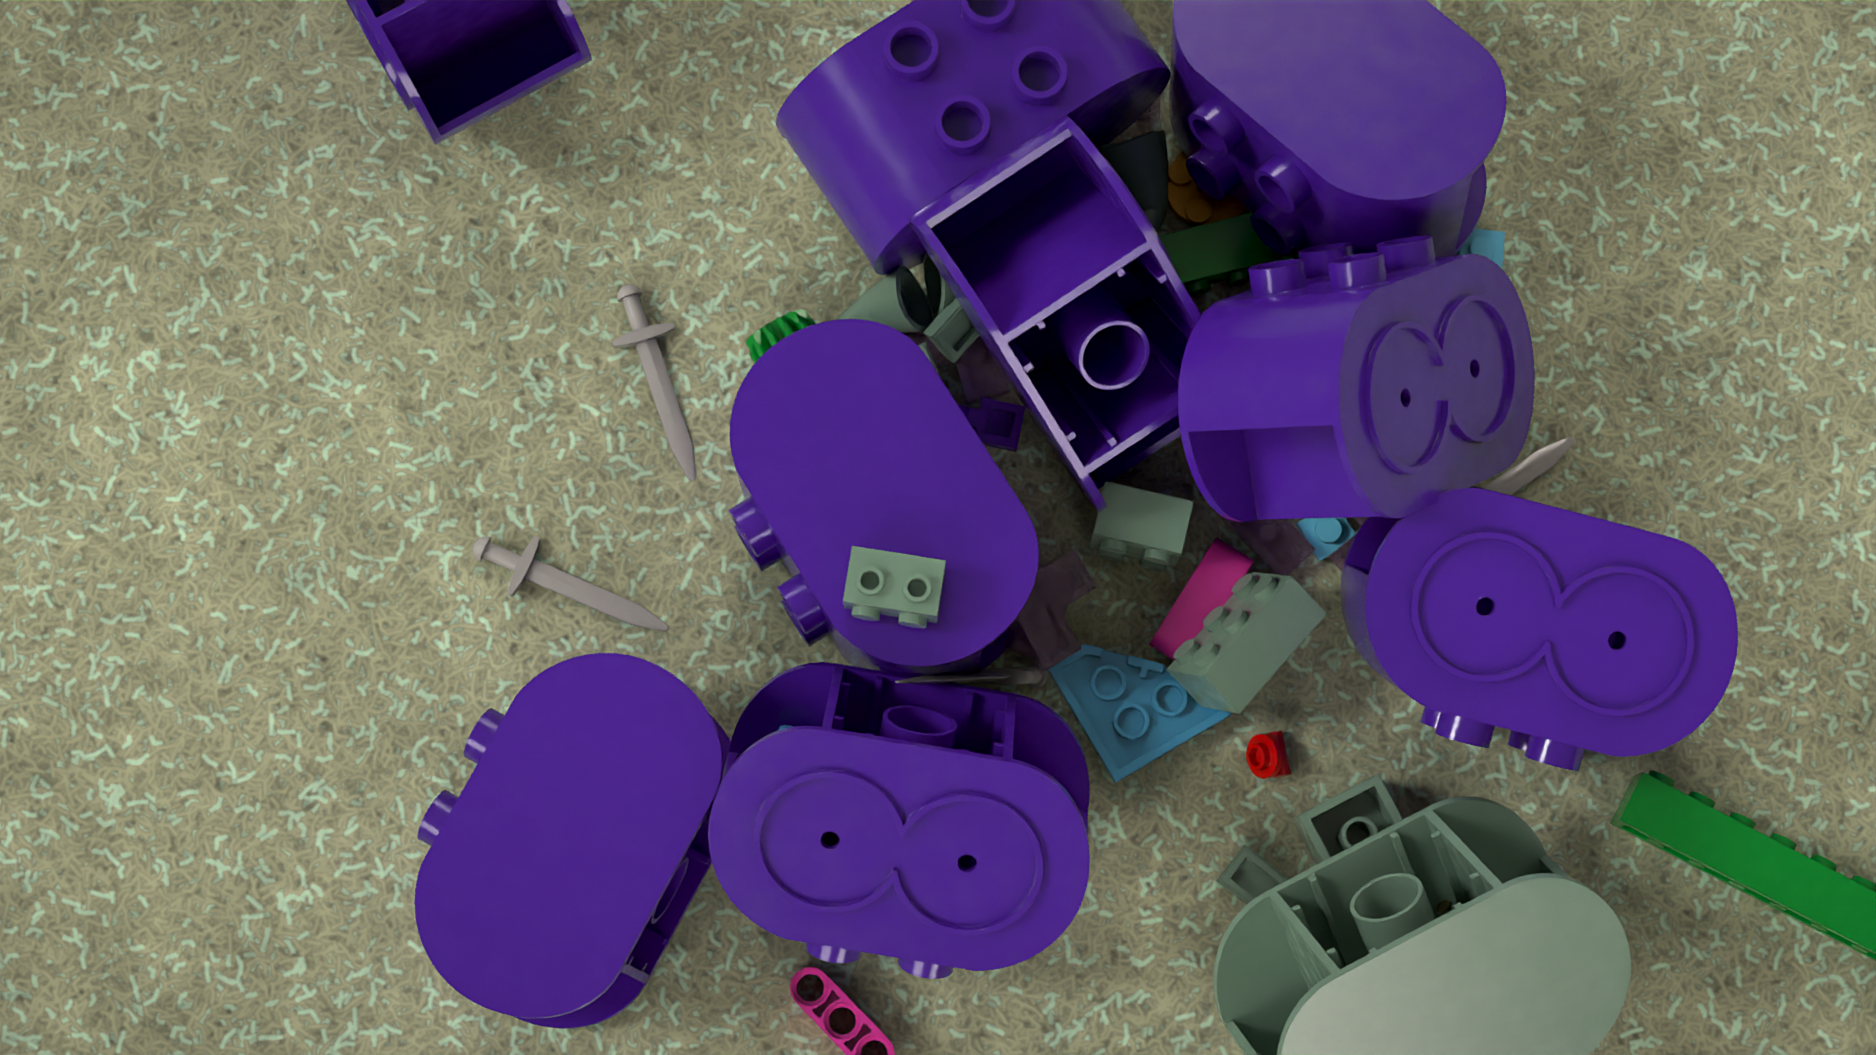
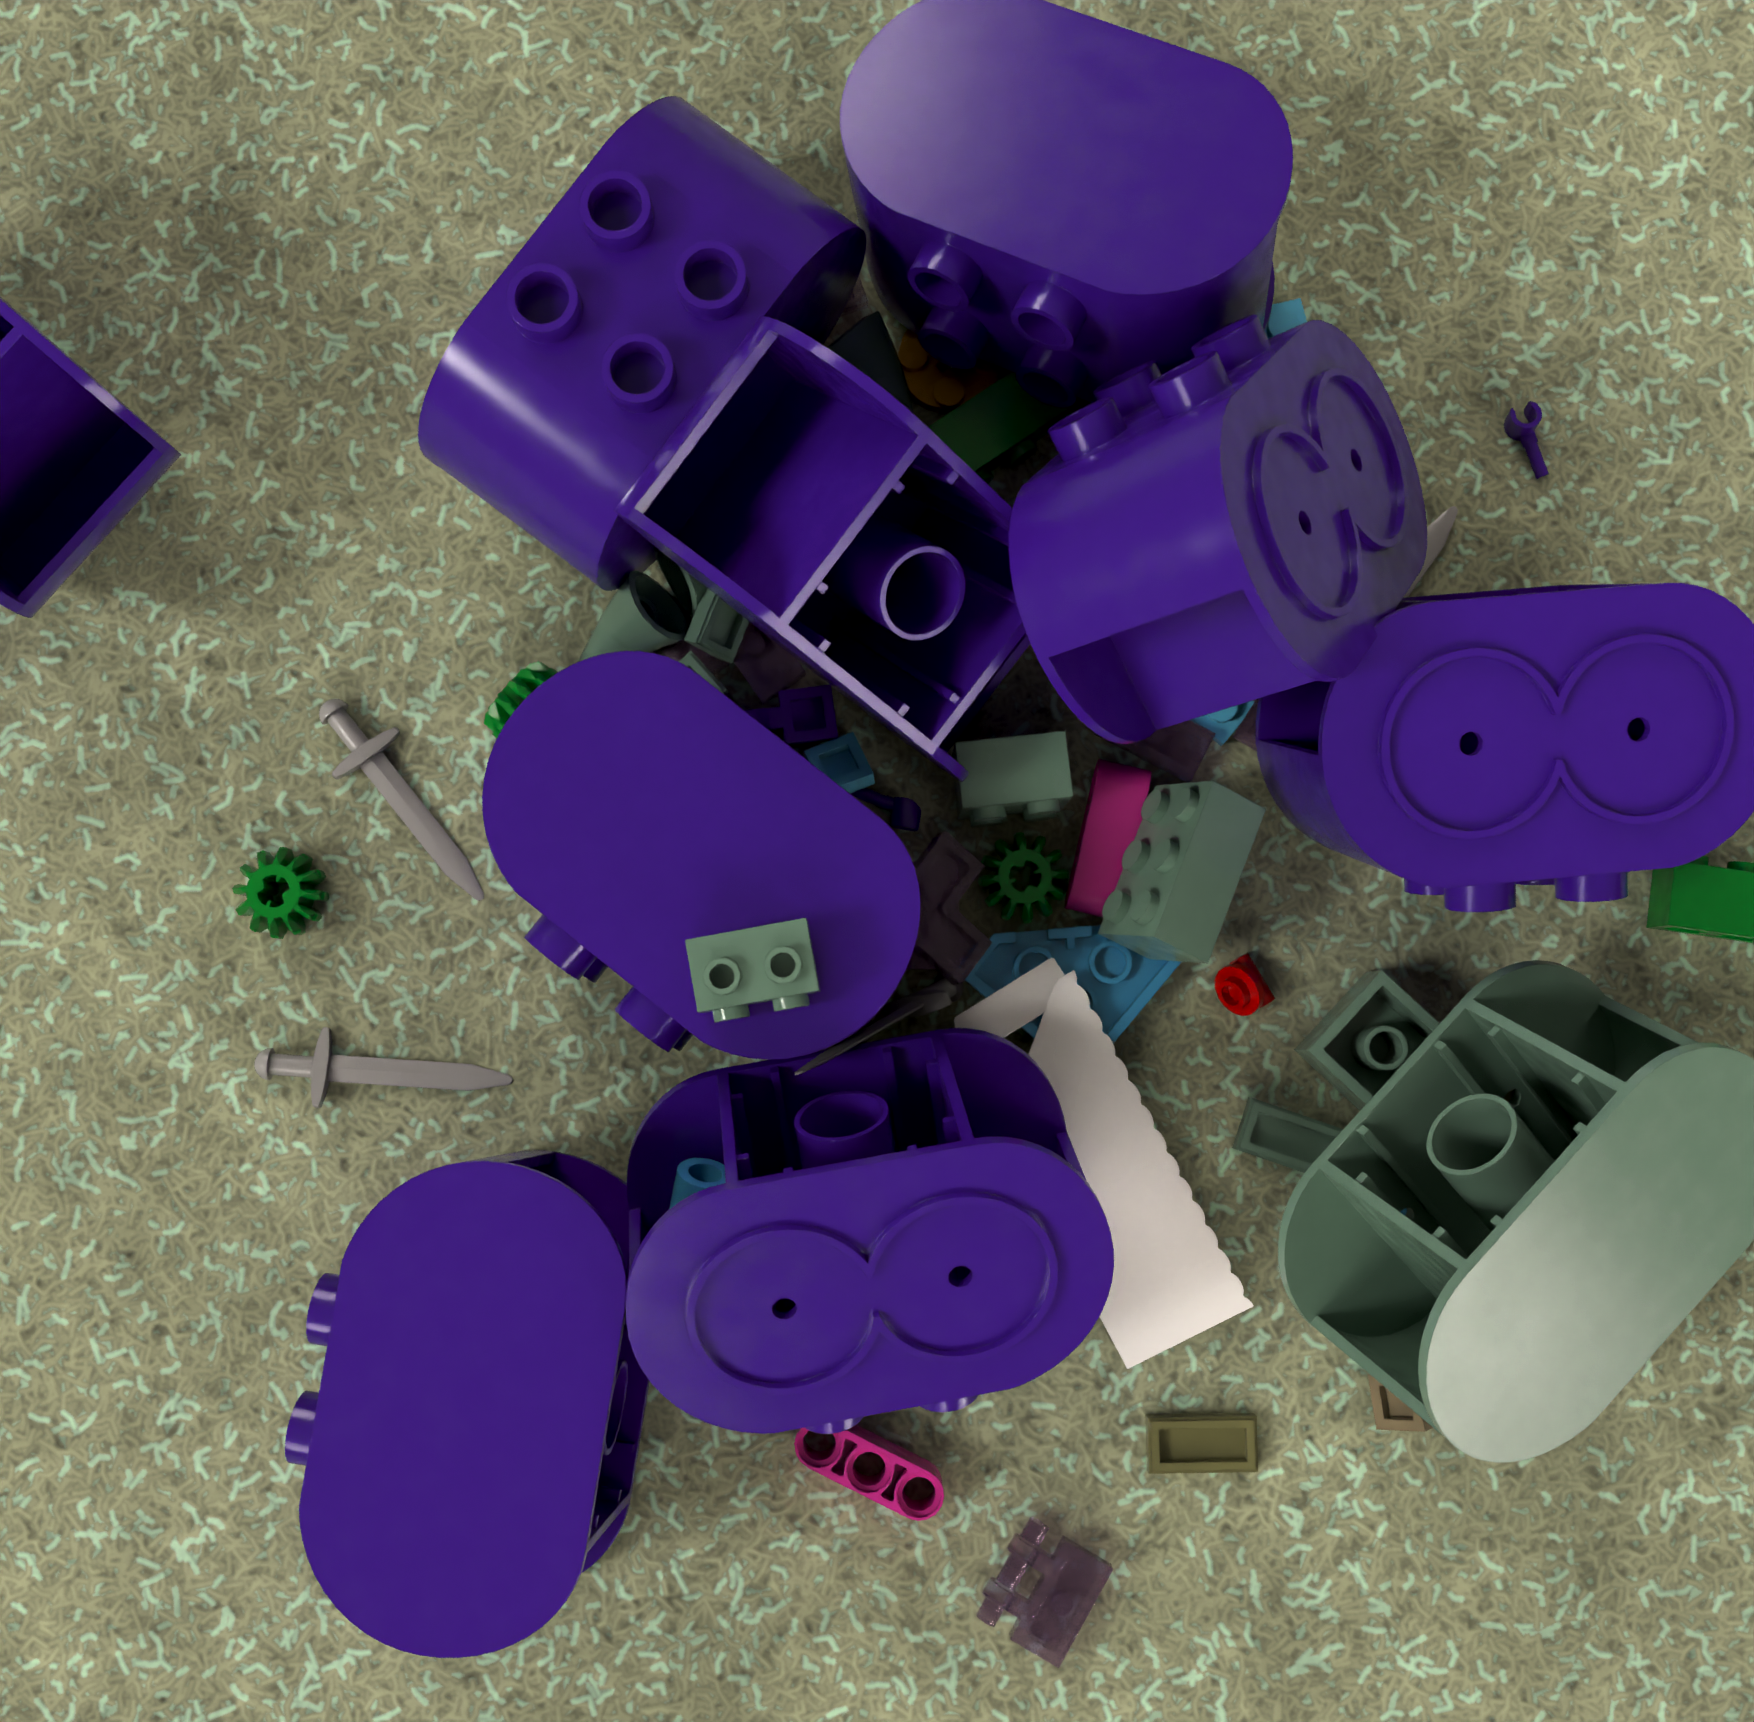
camera: 20 degrees left, 5 degrees up
(553, 428) = (297, 900): none -> green gear
(1017, 469) = (842, 762): none -> medium azure plate
(1049, 526) = (905, 811): none -> dark purple hand
(1090, 702) = (1014, 1003): none -> white sticker
(1122, 940) = (1166, 1259): none -> white sticker
(1124, 624) = (1031, 894): none -> green gear
(1650, 400) = (1526, 435): none -> dark purple hand

